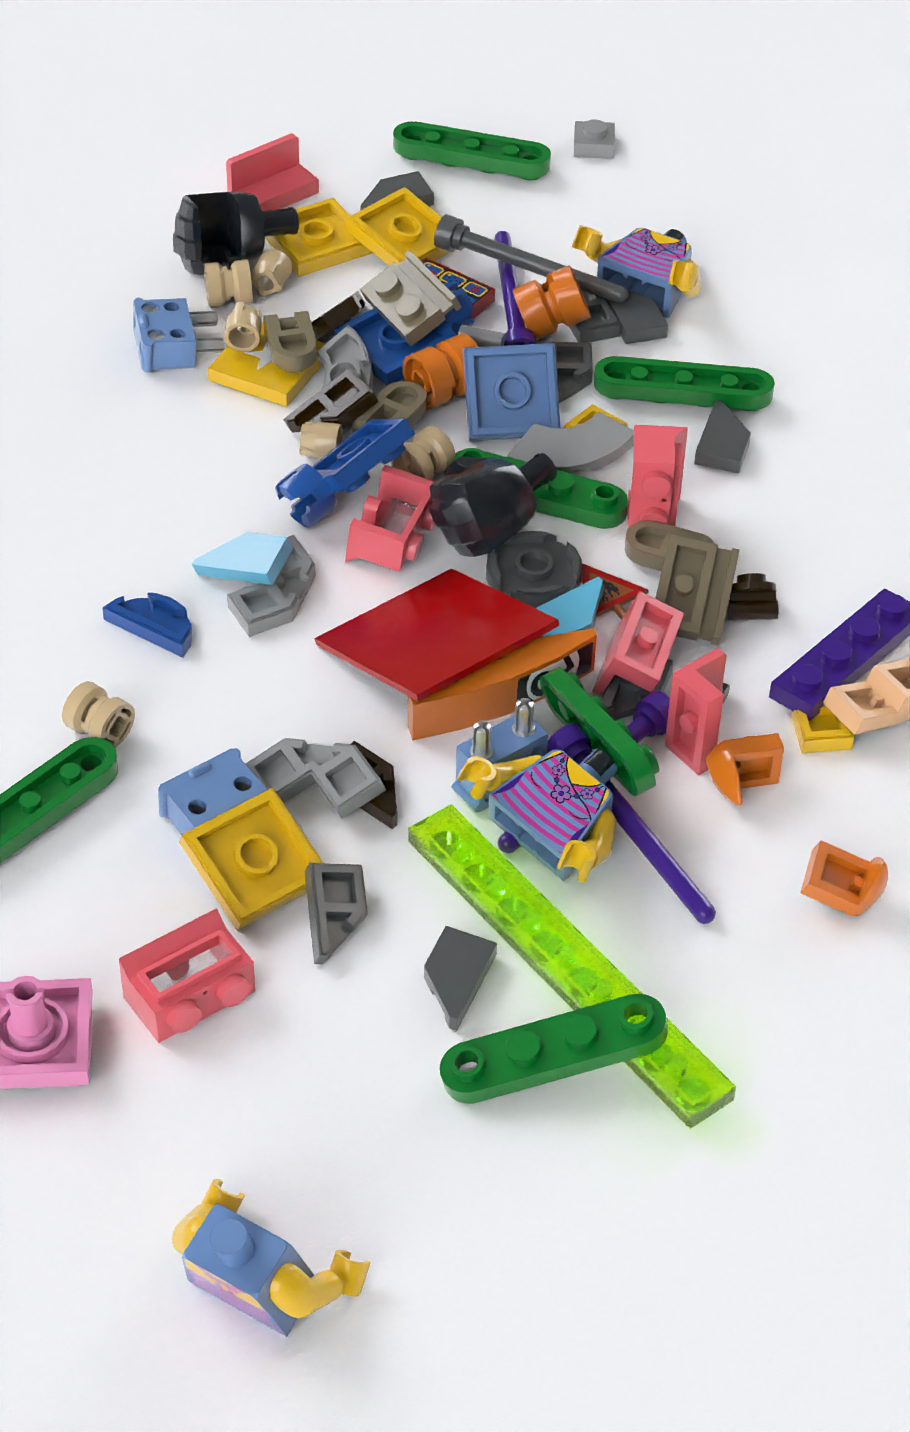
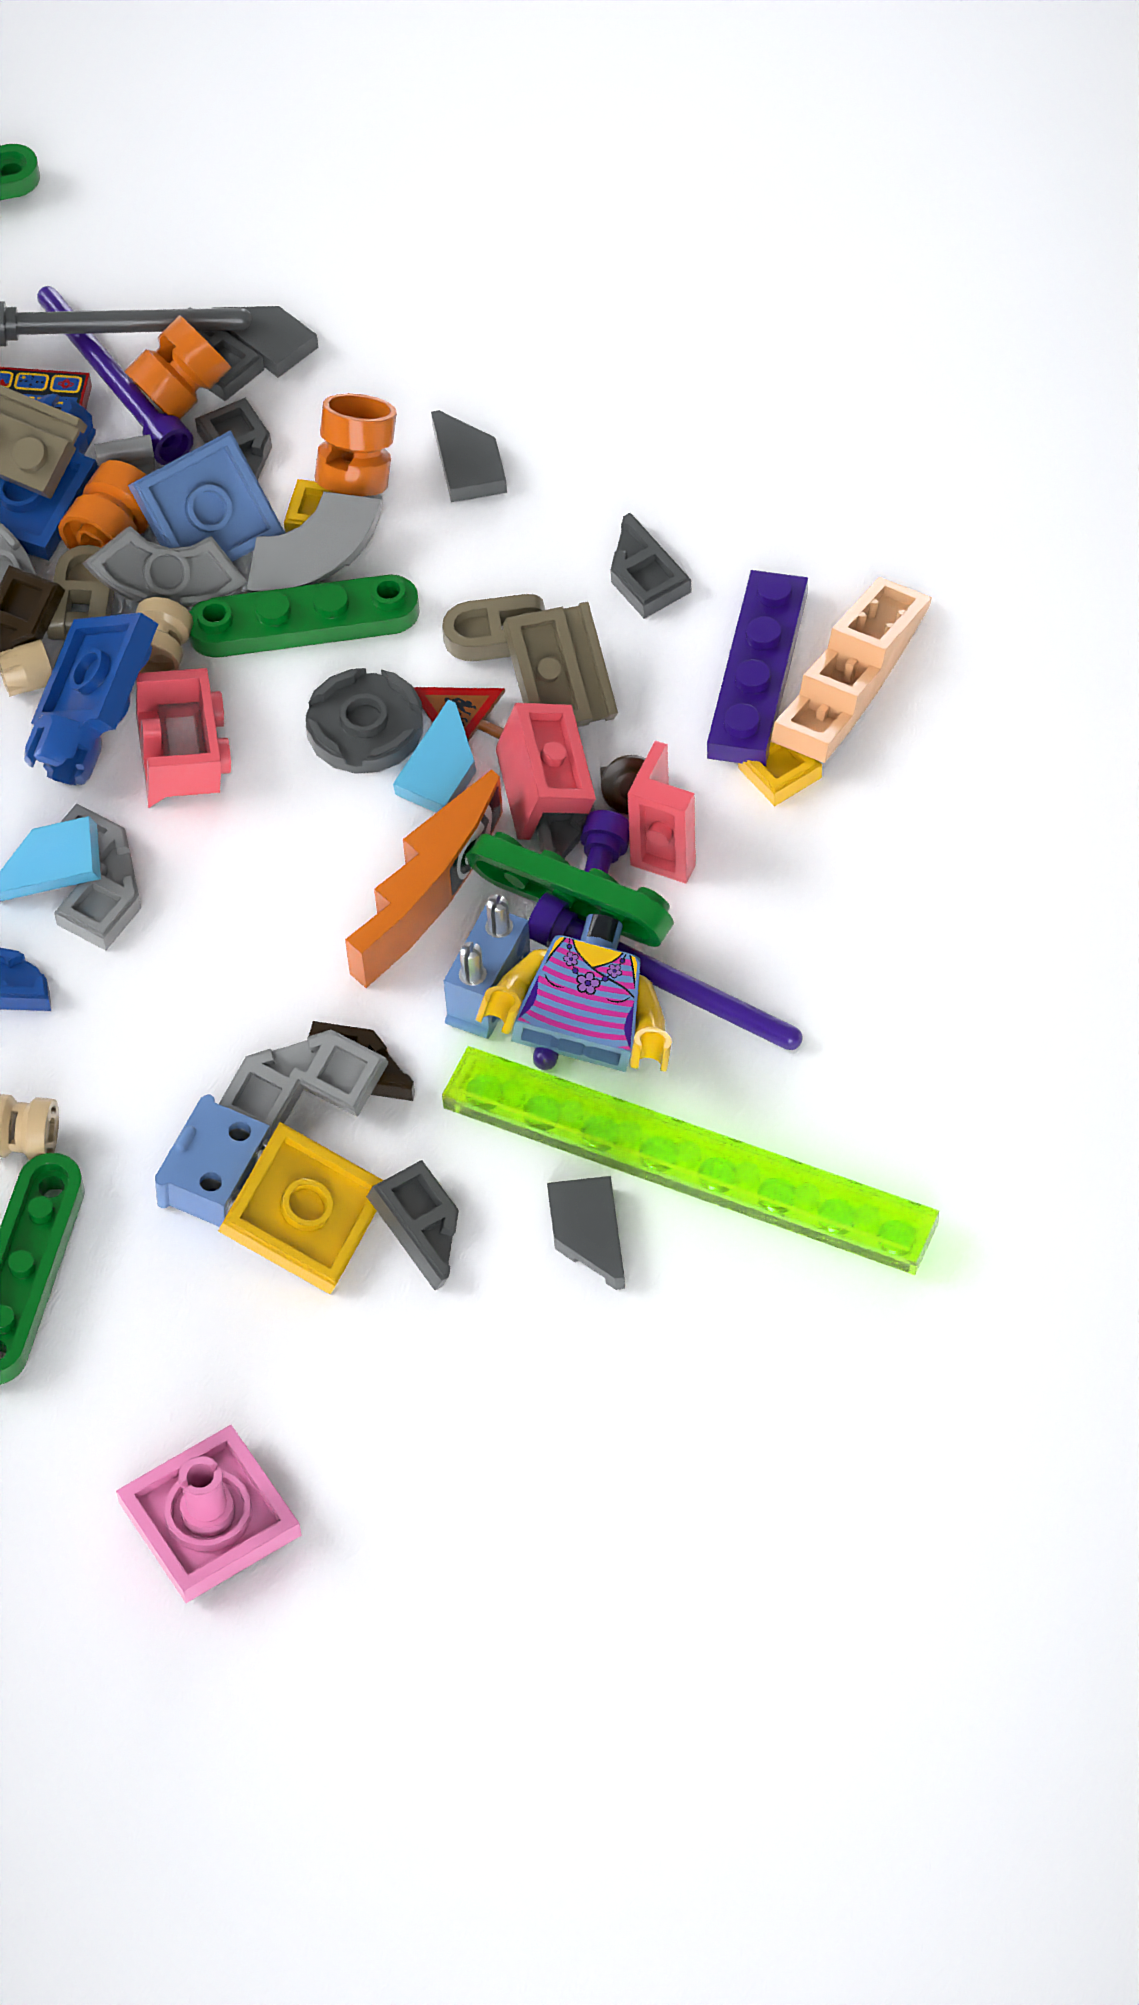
camera: 25 degrees left, 10 degrees up
(186, 976) = (327, 1373): coral window -> none
(255, 1267) = (601, 1631): torso -> none
(436, 633) = (320, 853): red piece -> none
(466, 424) = (150, 570): none -> light grey tile
(487, 500) = (275, 665): black piece -> none
(554, 1048) = (741, 1261): green plate -> none
(594, 139) = (64, 105): light grey plate -> none
(643, 389) = (355, 443): none -> orange wheel
(645, 263) = (247, 263): torso -> none
(656, 473) = (449, 547): coral window -> none
(683, 382) = (435, 384): green plate -> none
(745, 764) = (733, 850): orange plate -> none
(752, 598) = (625, 646): dark brown plate -> none
(806, 560) = (645, 570): none -> dark grey tile
(844, 879) = (908, 933): orange plate -> none

